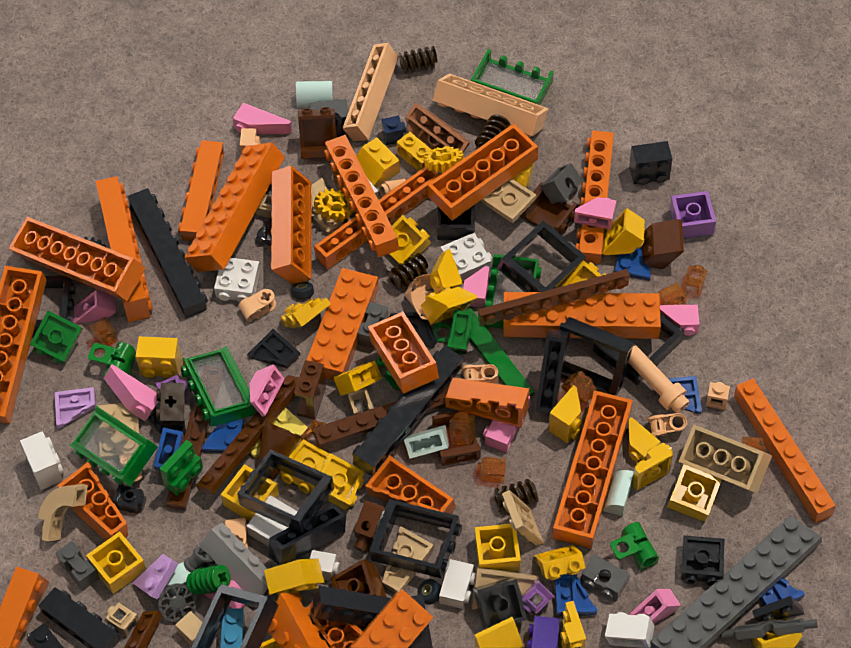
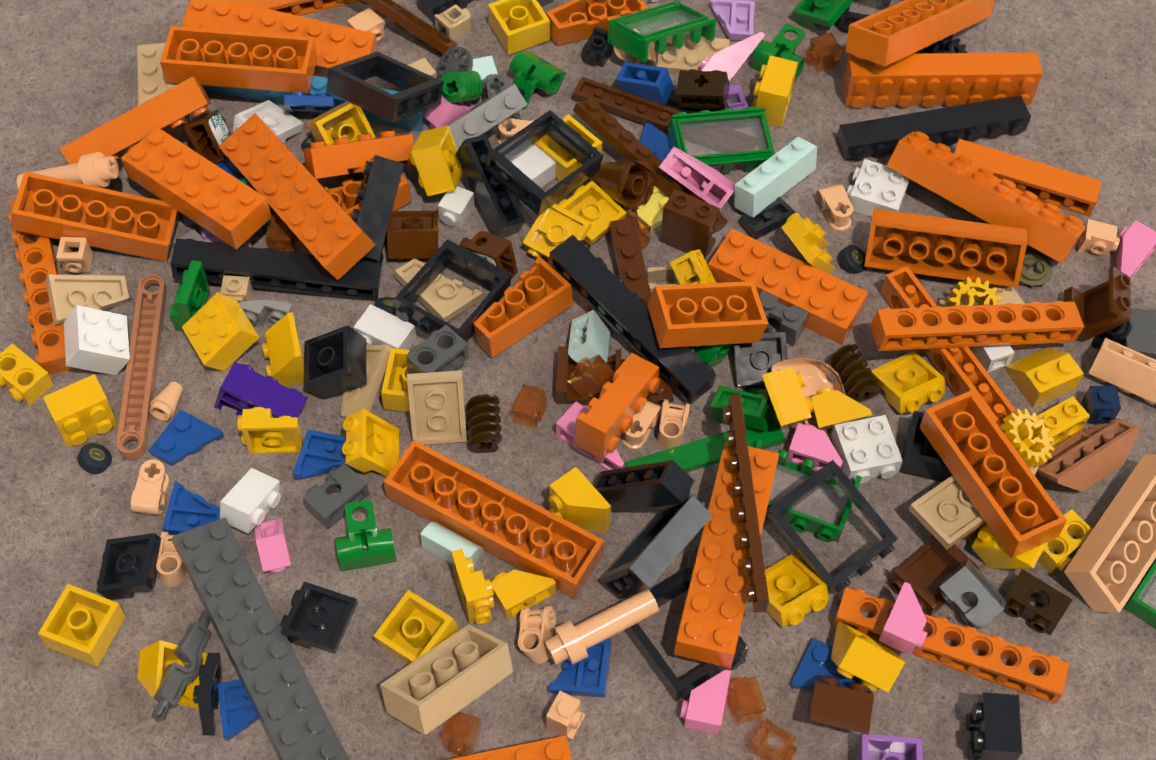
camera: 100 degrees right, 0 degrees up
(156, 576) = (484, 47): lavender wing -> none
(172, 536) = (534, 73): none -> green piece
(181, 468) = (610, 79): green plate -> none
(243, 344) = (775, 176): none -> light aqua brick
(388, 186) = (1005, 384): light nougat cone -> none
(487, 520) = (438, 357): none -> dark grey brick
(493, 127) = (1075, 517): dark brown piece -> none
(536, 597) = (328, 404): medium lavender window -> none
(551, 153) = (1031, 589): none -> dark brown brick
(584, 386) = (619, 529): clear orange brick -> none

